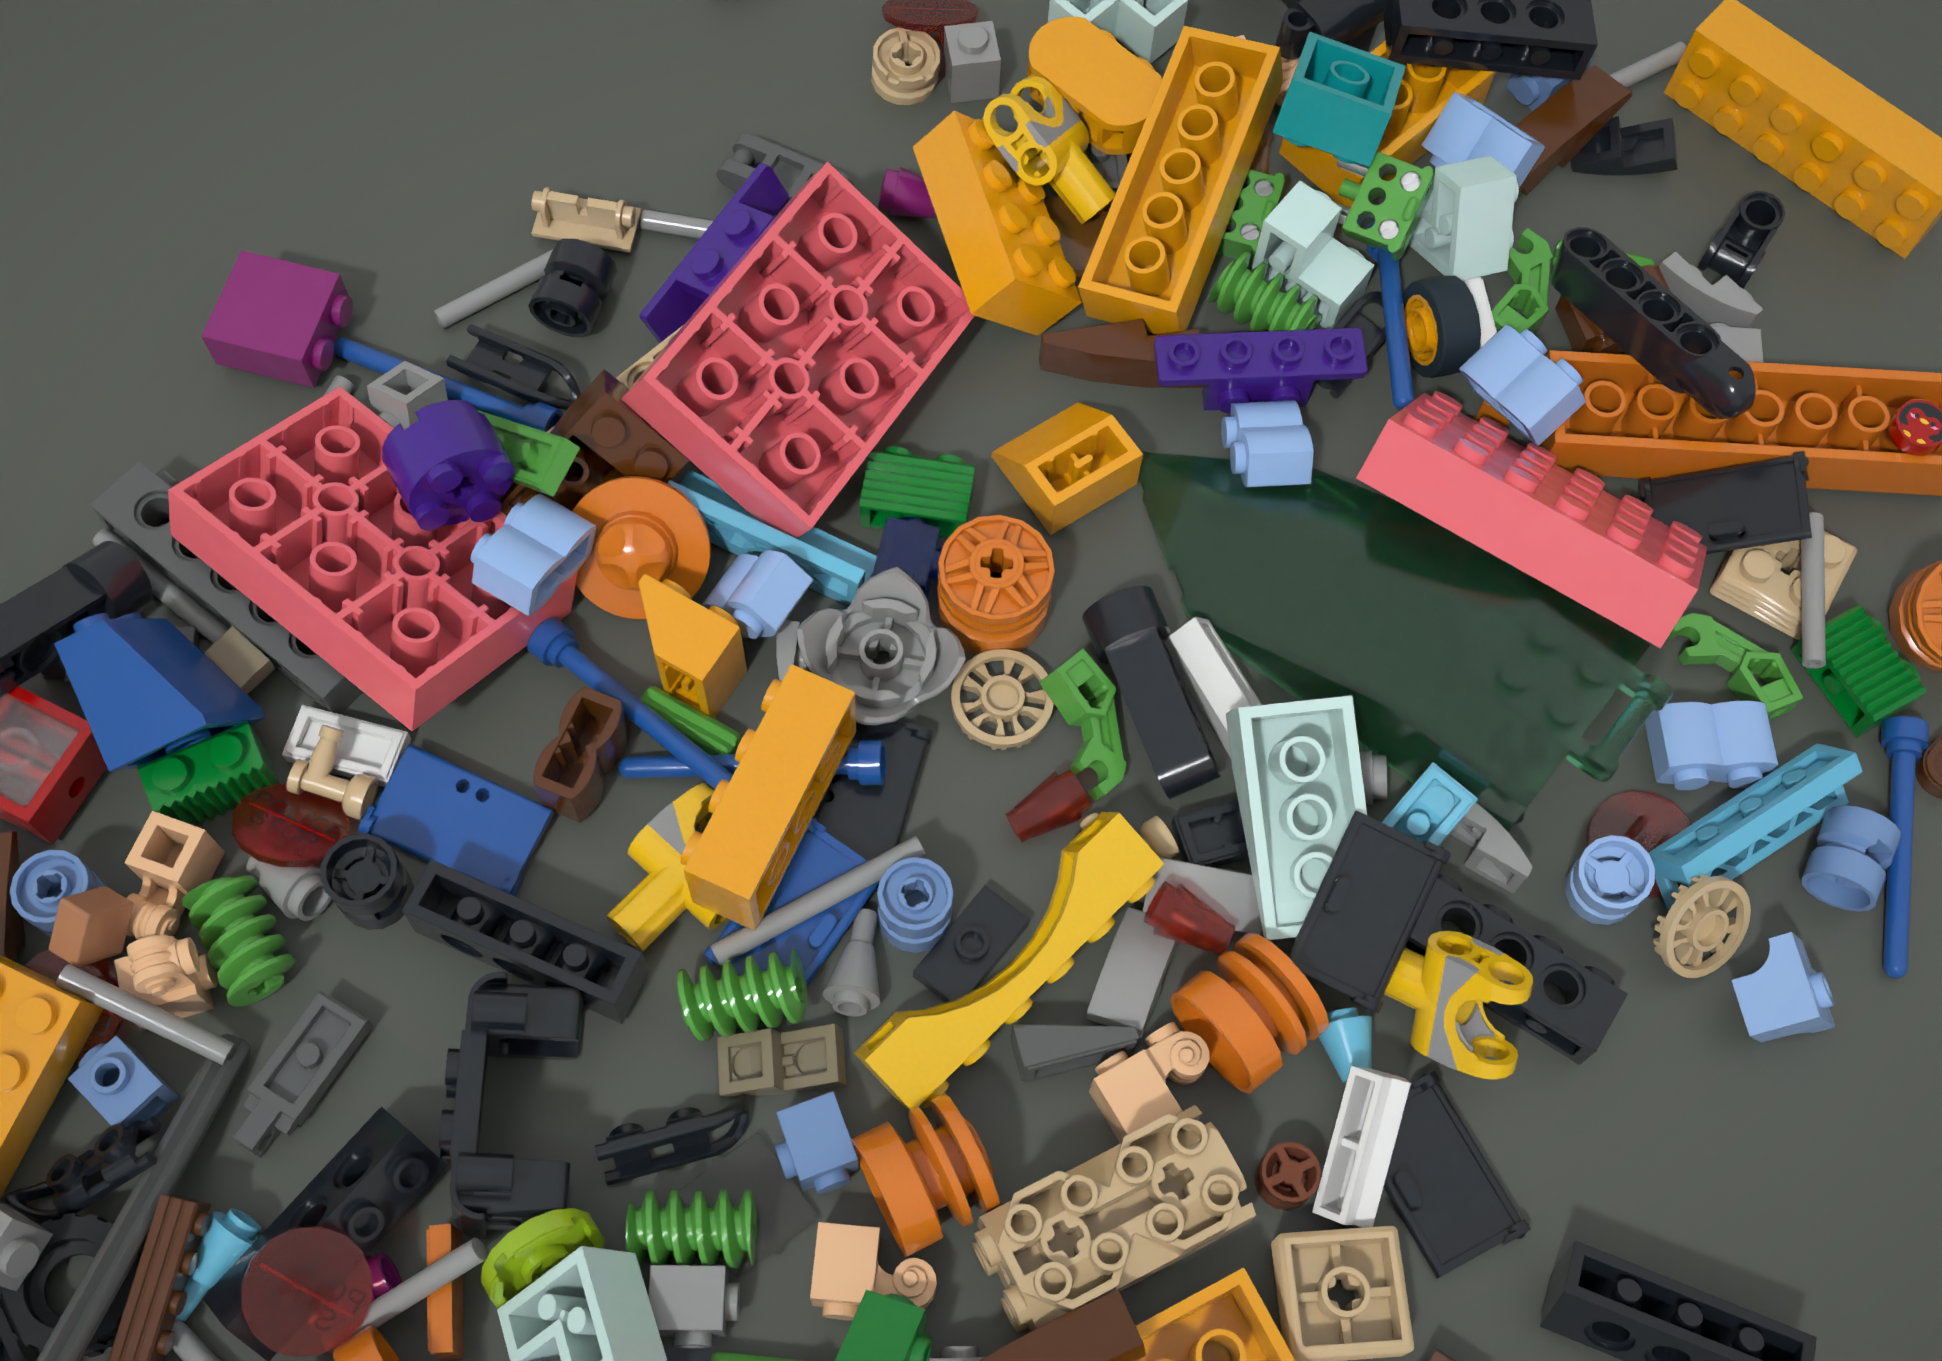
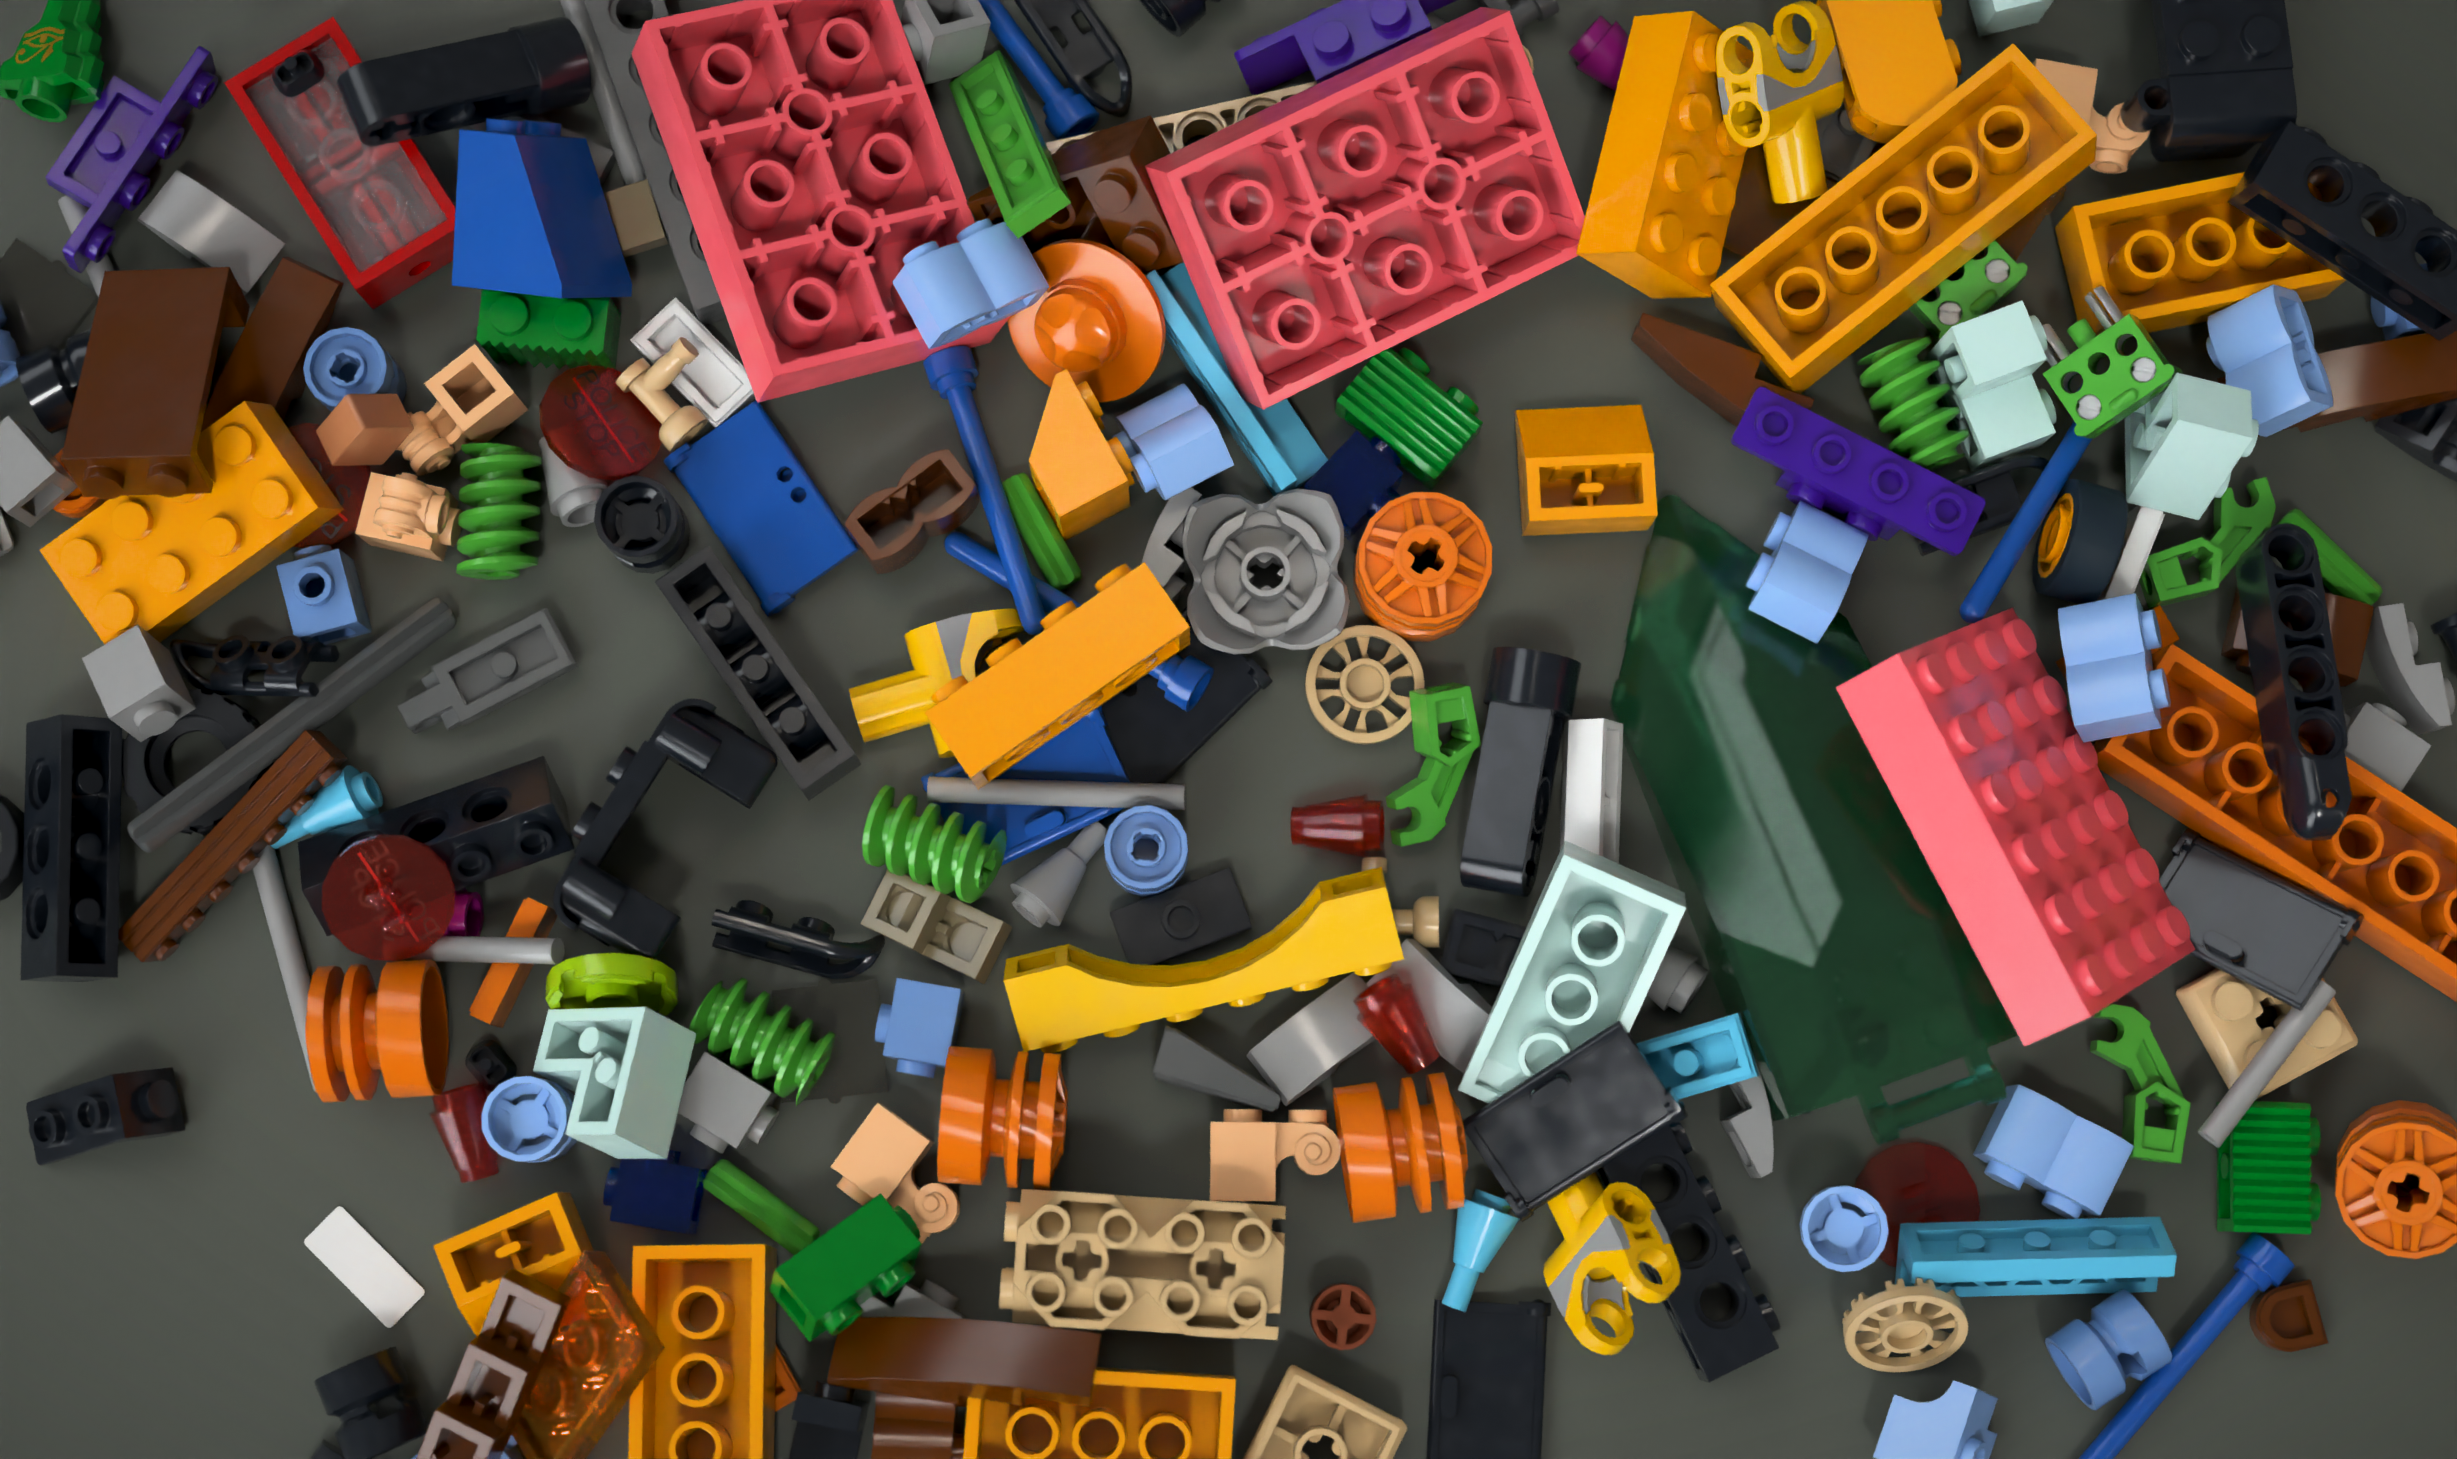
camera: 30 degrees right, 15 degrees up
(145, 1014) = (373, 545): light grey bar -> none
(448, 465) = (934, 144): dark purple brick -> none
(1339, 100) = (2125, 232): teal brick -> none
(1361, 1147) = (1425, 1333): white piece -> none

